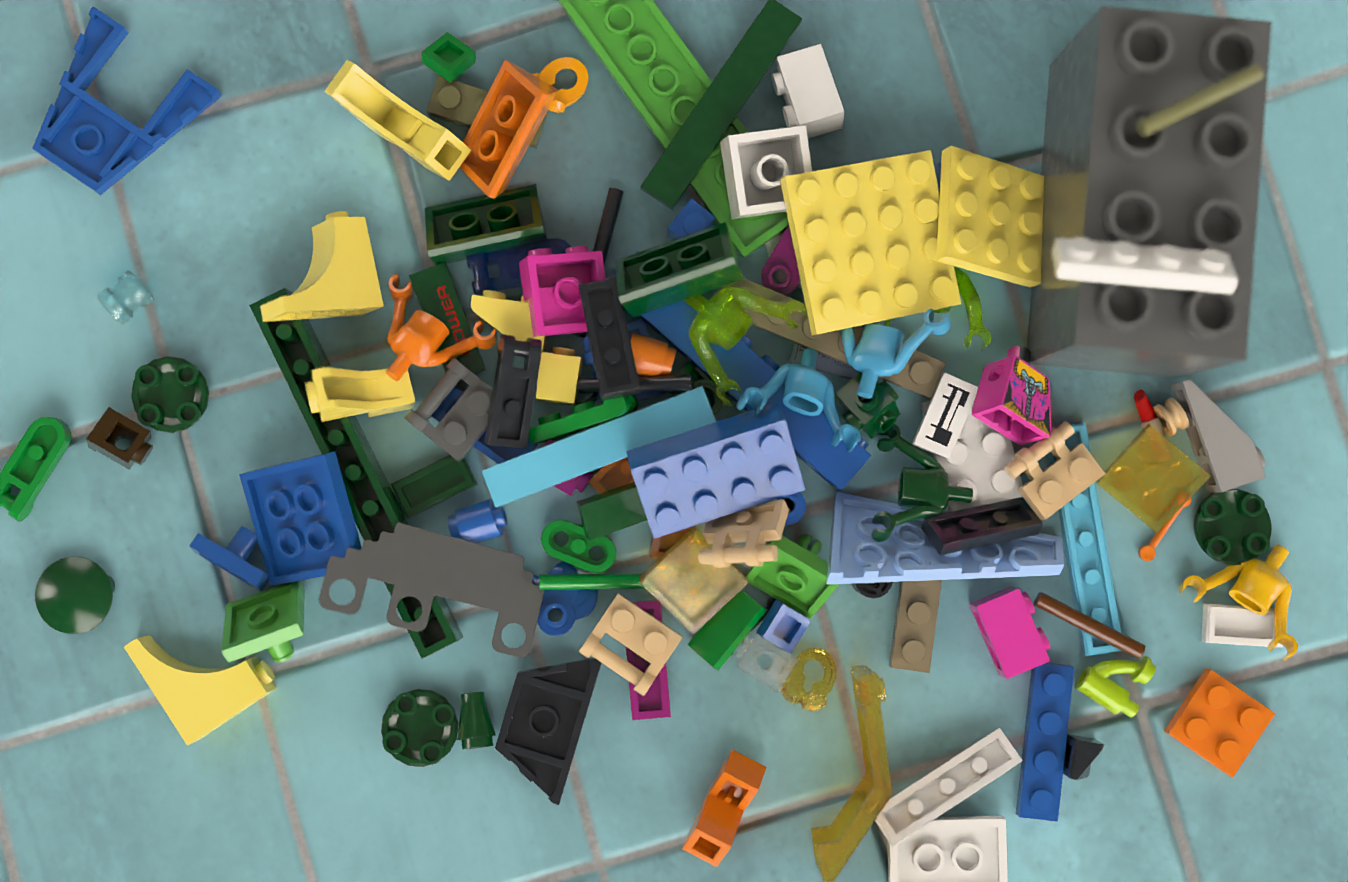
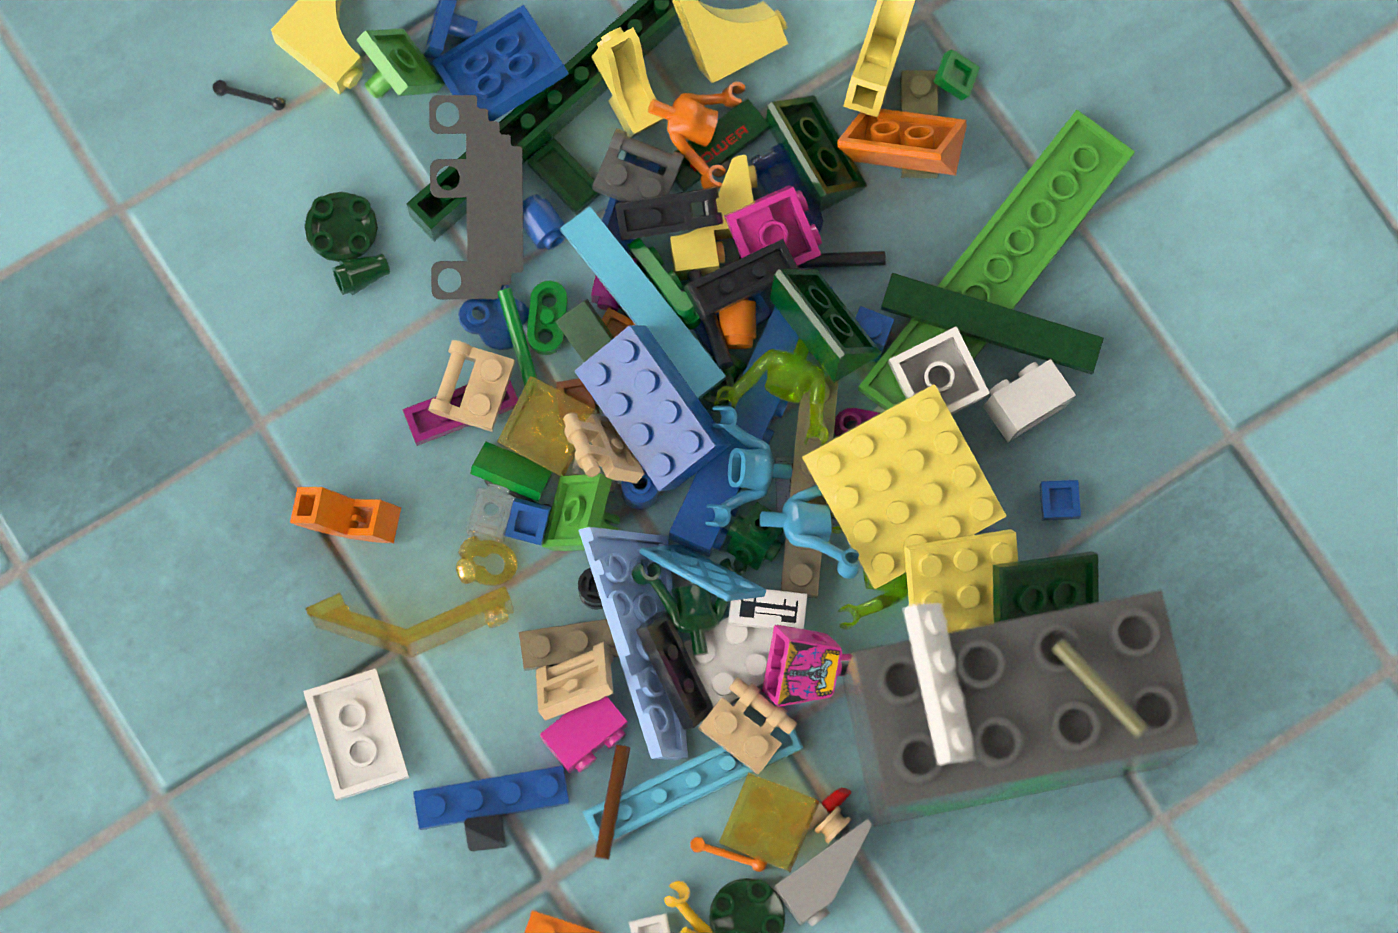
camera: 75 degrees right, 10 degrees down
(233, 808) = (220, 88): none -> black hinge
(546, 721) = (378, 336): black wing -> none
(565, 97) = (955, 188): light orange piece -> none
(874, 469) = (703, 572): none -> dark azure window
(915, 95) = (1060, 500): none -> blue plate
(947, 786) = (422, 710): white plate -> none
(974, 629) = (574, 682): none -> tan plate
(1014, 139) = (1044, 585): none -> dark green tile
(1098, 687) = (553, 841): lime plant -> none

